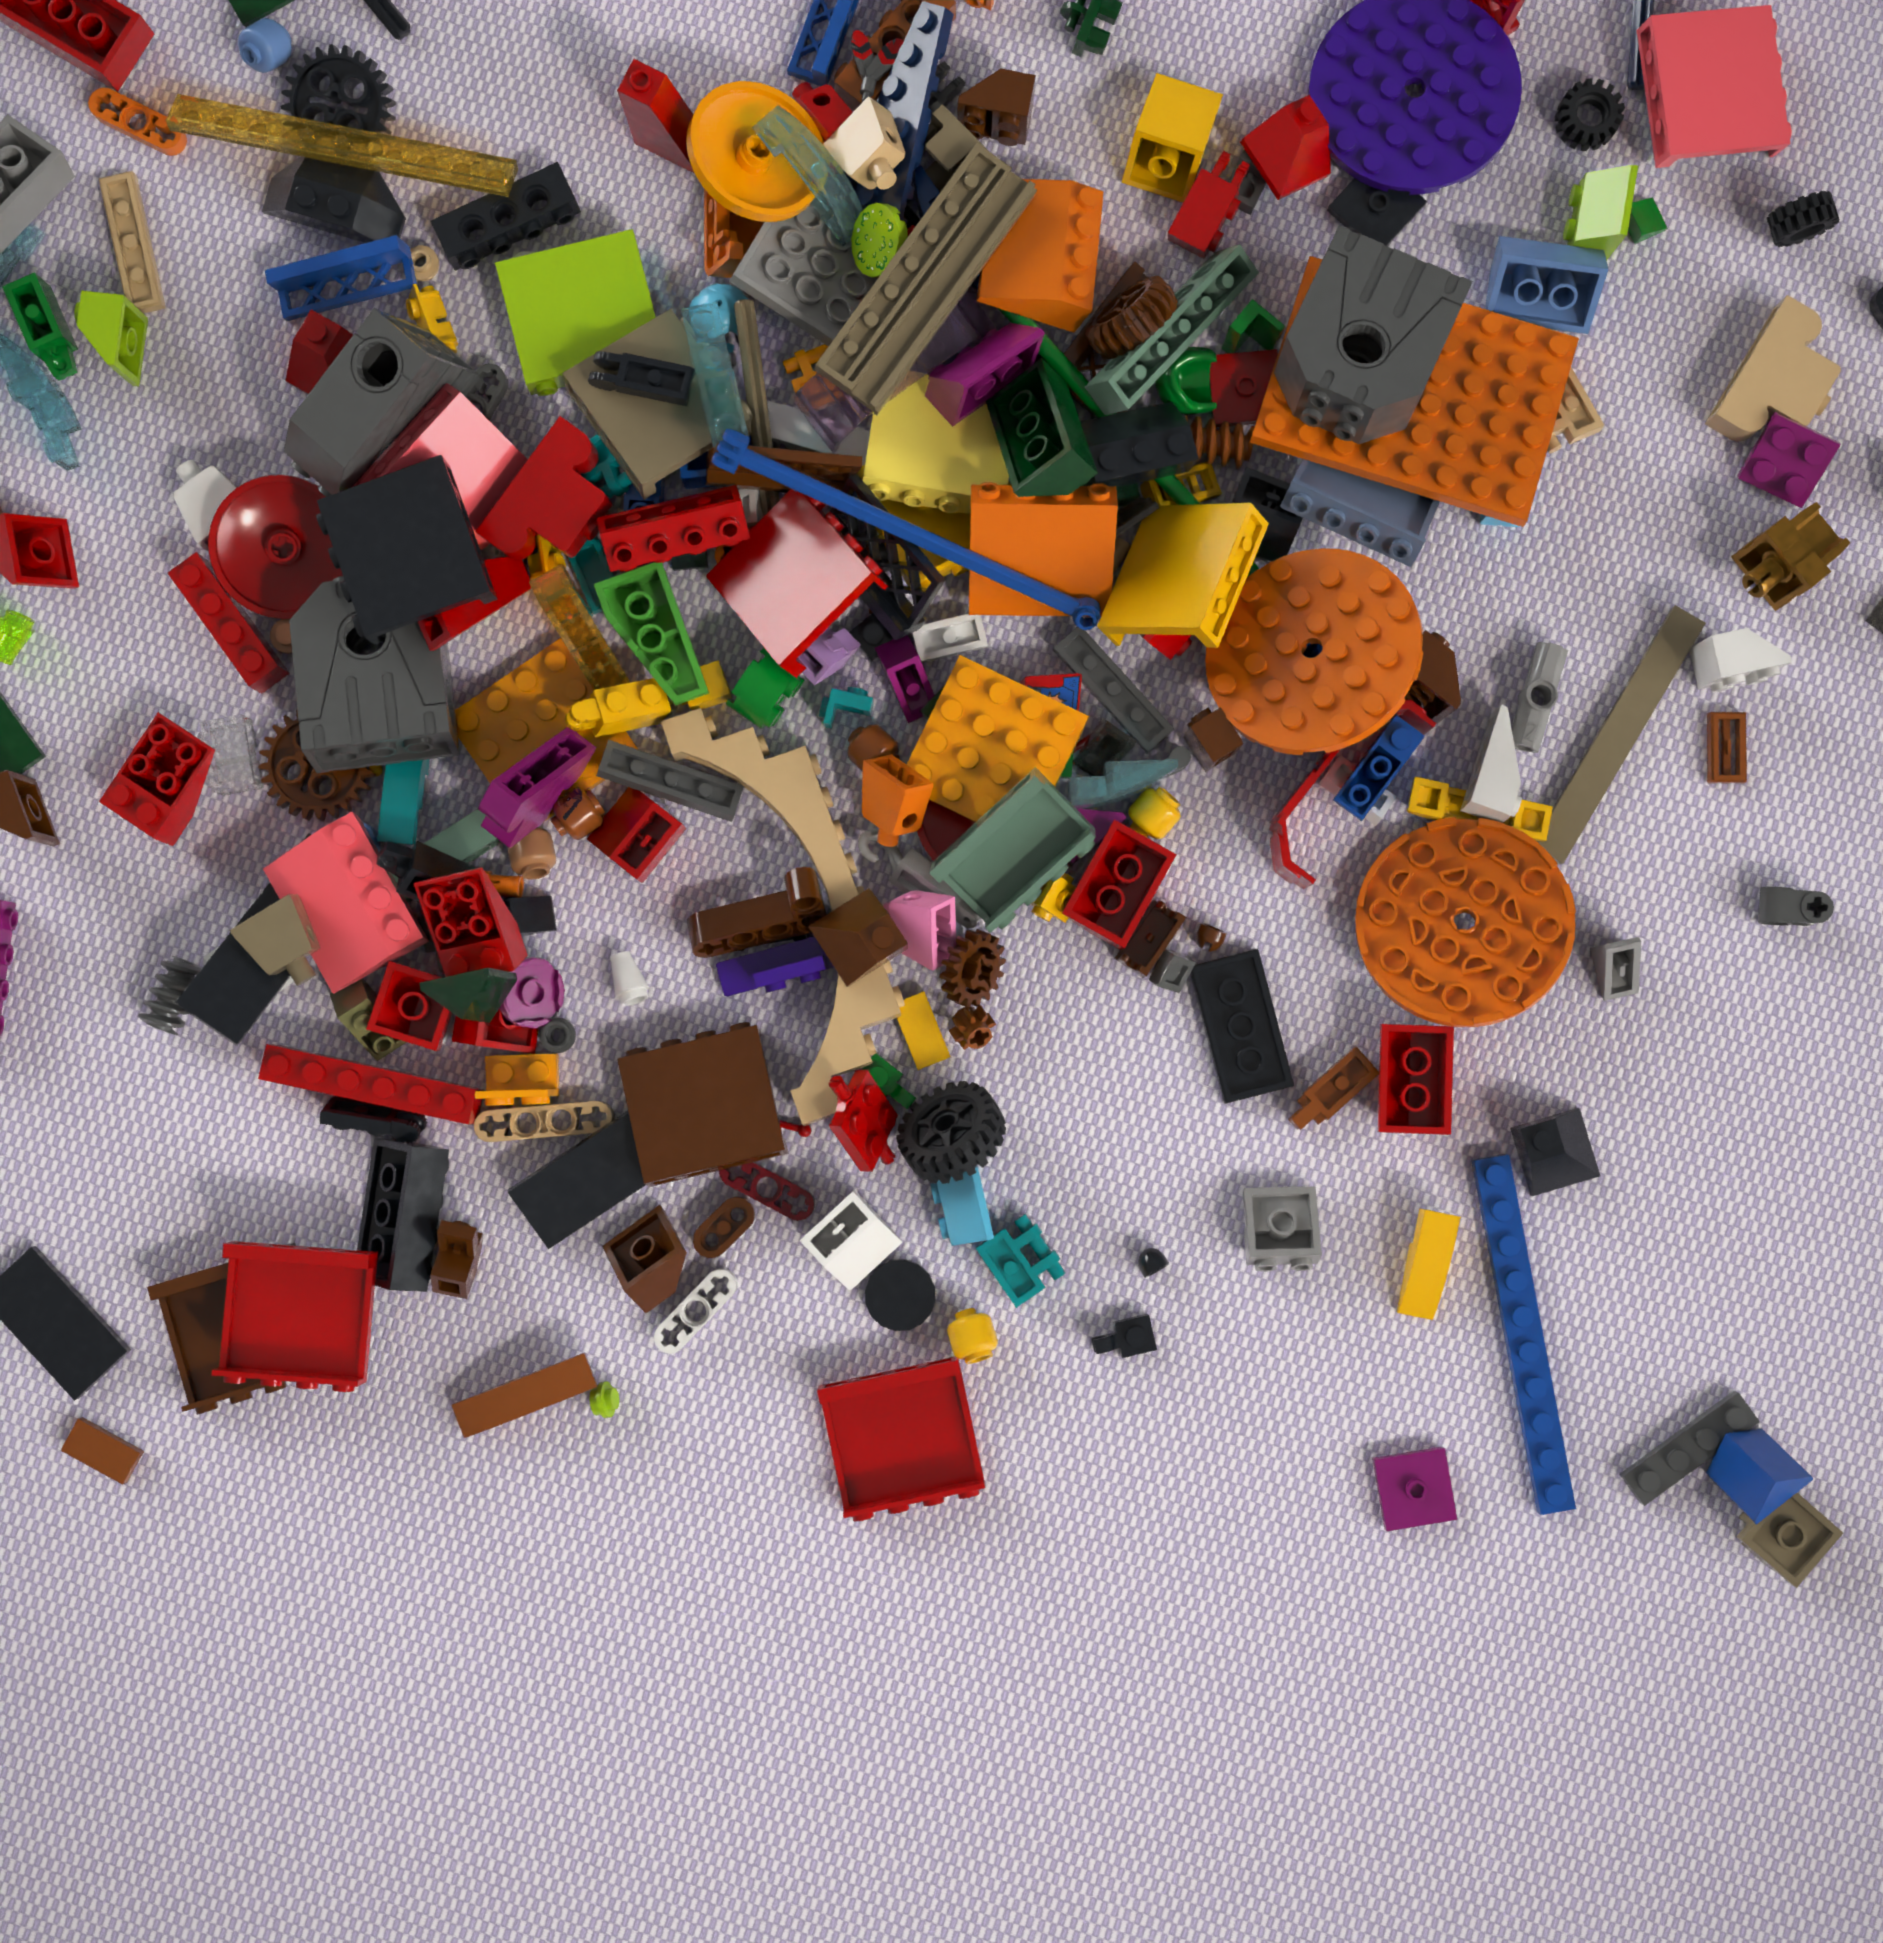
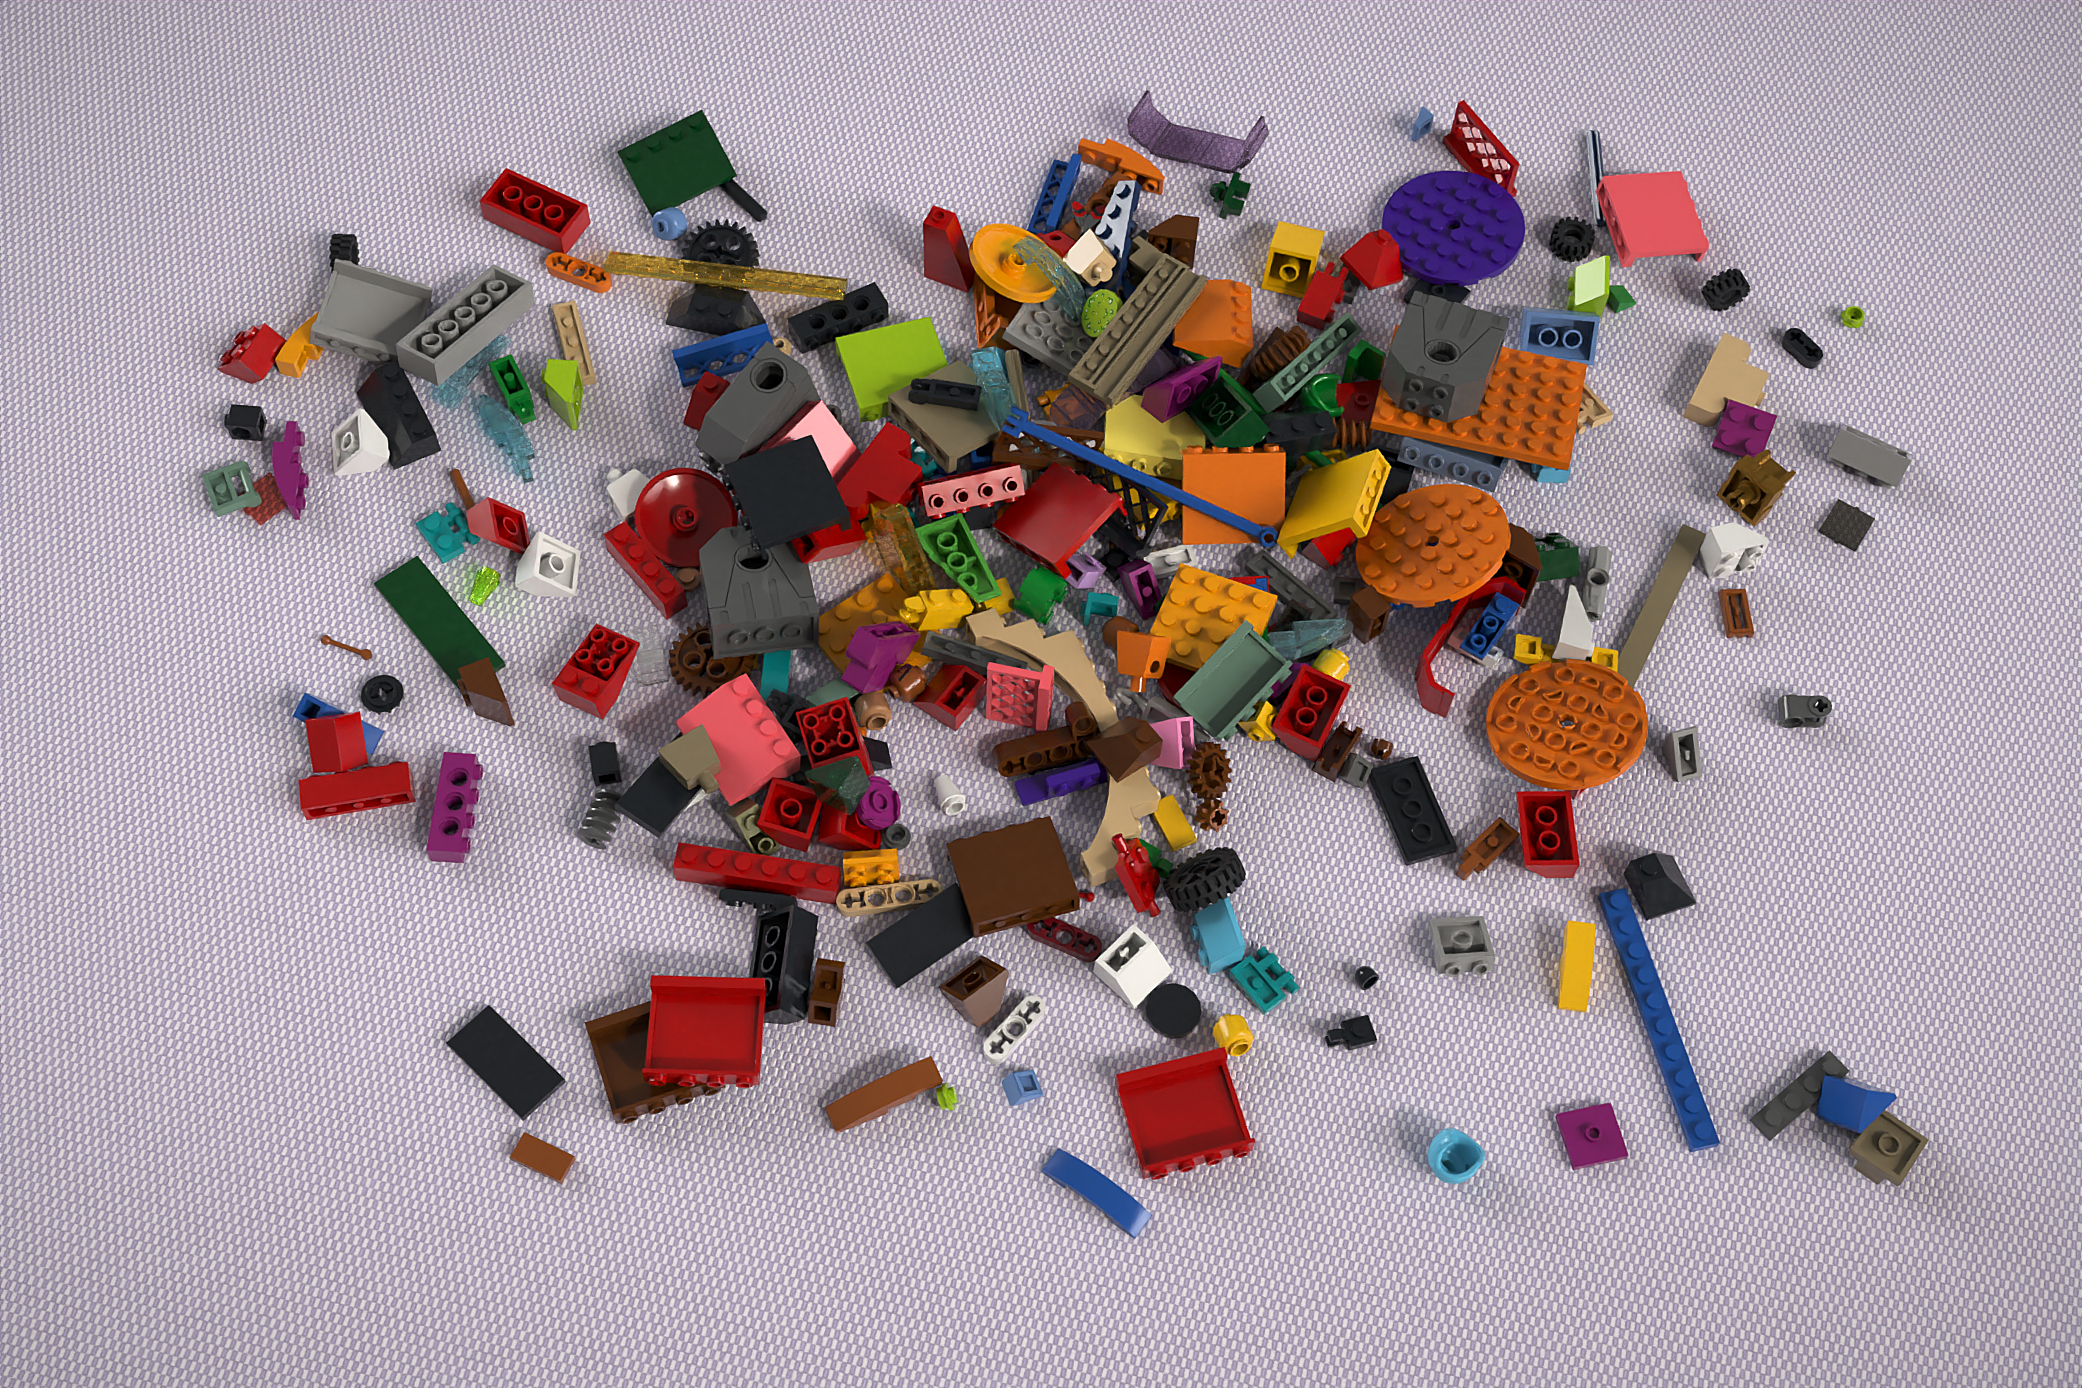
camera: 10 degrees left, 25 degrees down
(99, 613) = (548, 568): none -> white slope
(175, 913) = (605, 763): none -> black brick
(701, 1387) = (1021, 1087): none -> medium blue slope
(724, 1227) = (1032, 967): reddish brown plate -> none
(751, 869) = (1038, 700): none -> coral fence
(783, 1530) = (1098, 1191): none -> blue slope
(1189, 693) = (1344, 588): none -> dark grey plate
(1236, 1517) = (1454, 1156): none -> medium azure piece
(1483, 651) = (1557, 556): none -> dark green slope

